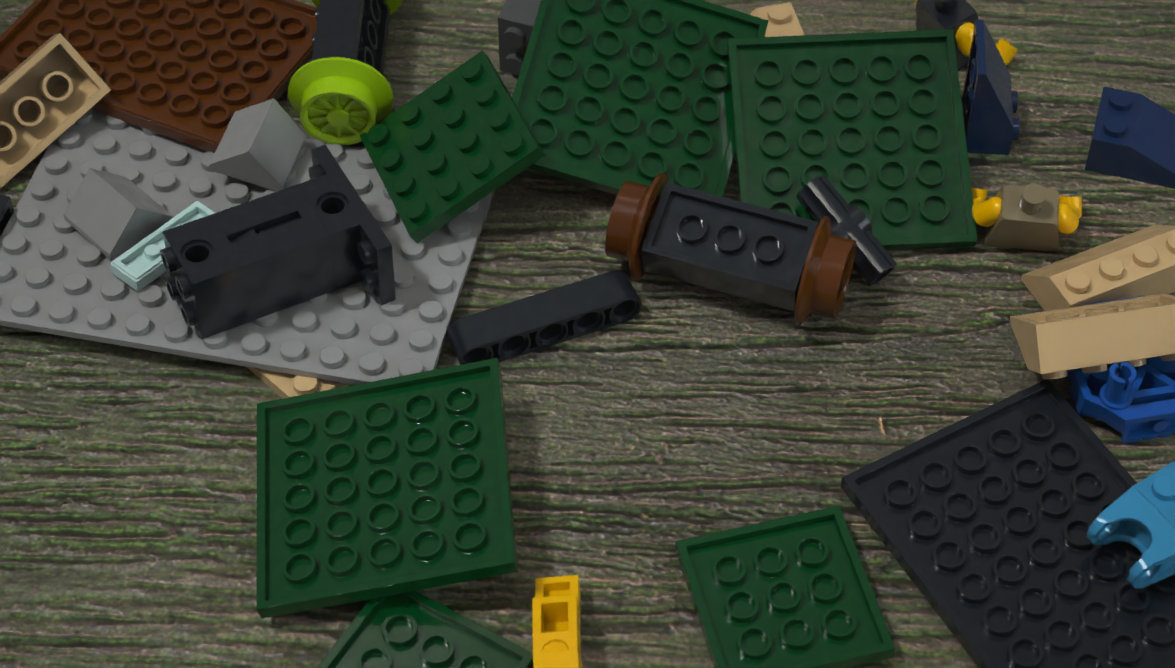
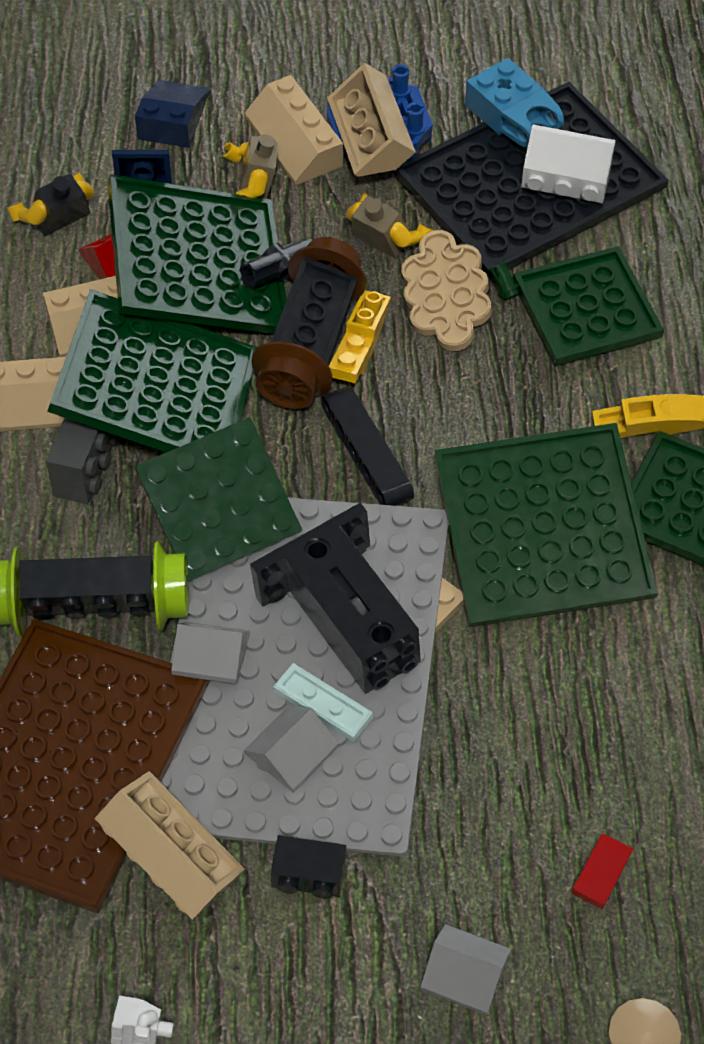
camera: 95 degrees left, 5 degrees up
(730, 327) = (360, 336): none -> yellow slope
(812, 426) = (446, 290): none -> tan plate
(826, 491) = (504, 280): none -> dark green pin
(921, 347) = (382, 226): none -> dark tan torso
(1028, 573) = (568, 163): none -> white slope

